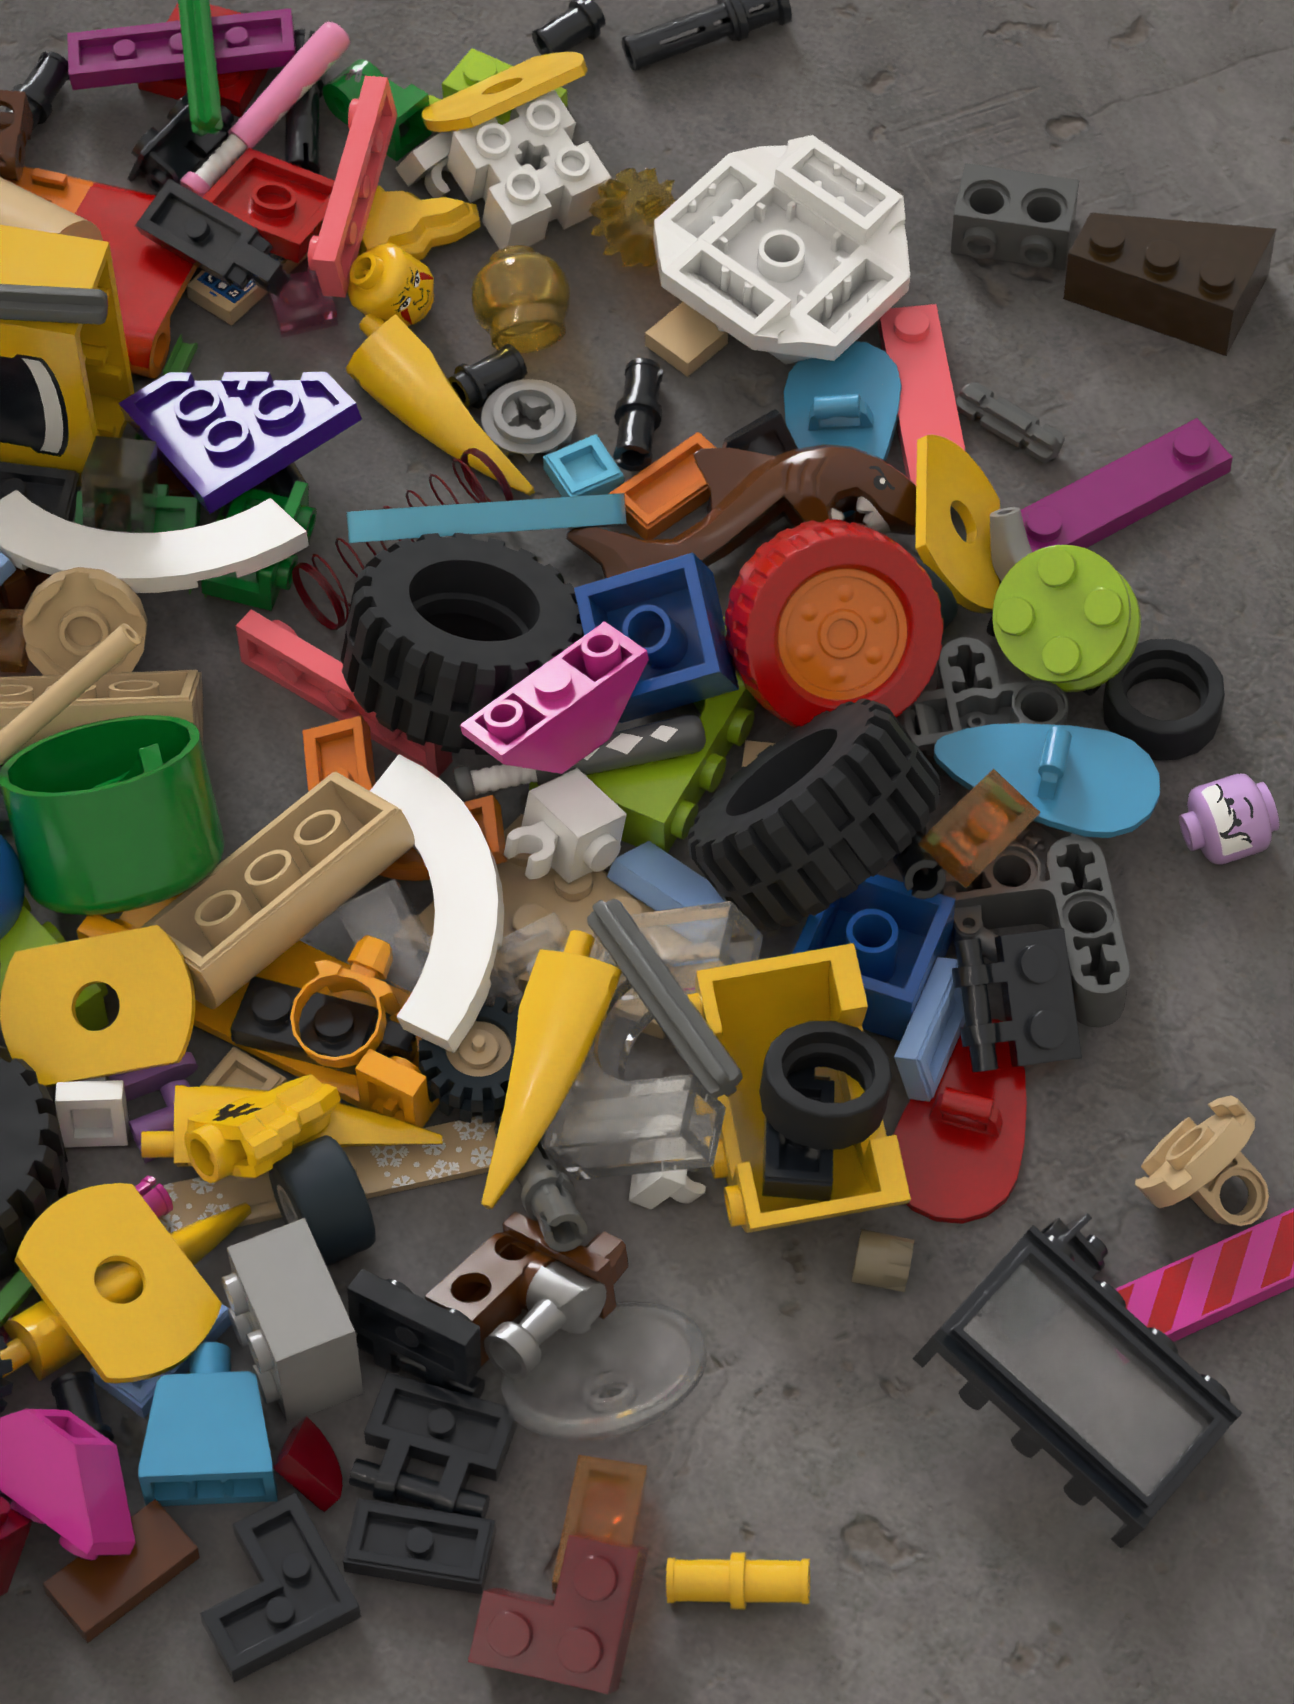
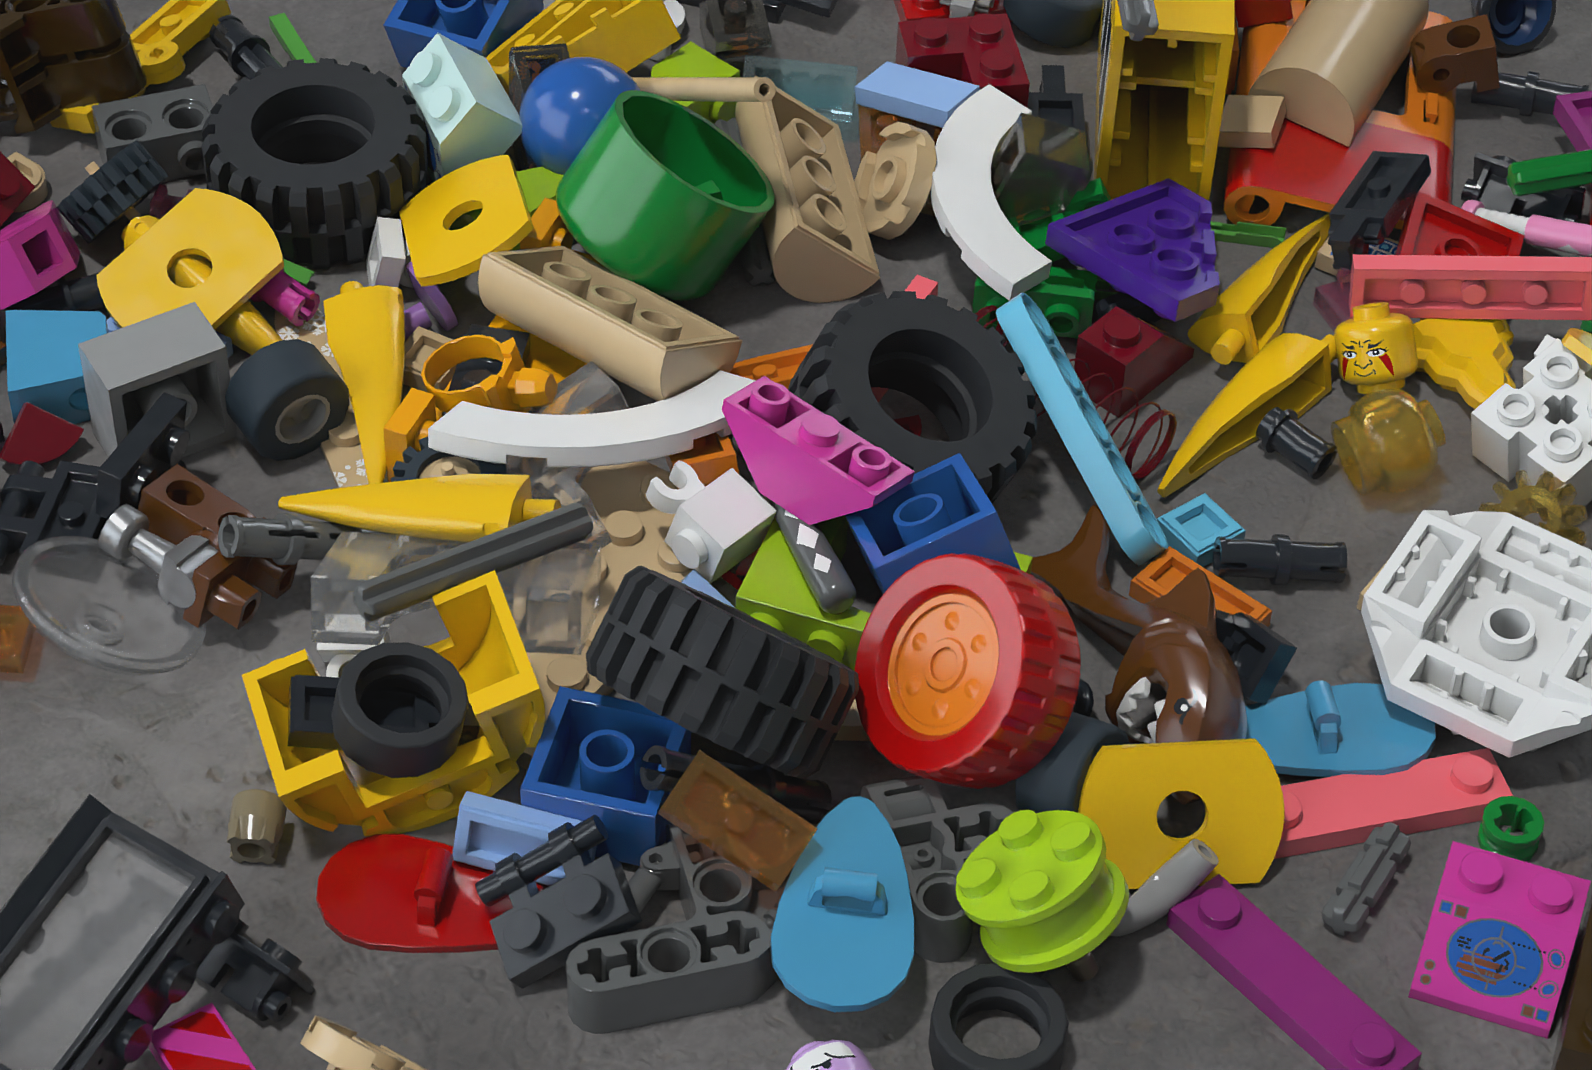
camera: 80 degrees right, 10 degrees down
(253, 351) = (1258, 301): none -> yellow piece
(258, 1129) = (337, 326): yellow rock -> none
(356, 476) = (1132, 353): none -> dark red slope
(537, 401) = (1252, 463): light grey gear -> none
(977, 310) = (1519, 815): none -> green bush
(1090, 342) = (1500, 939): none -> dark pink slope

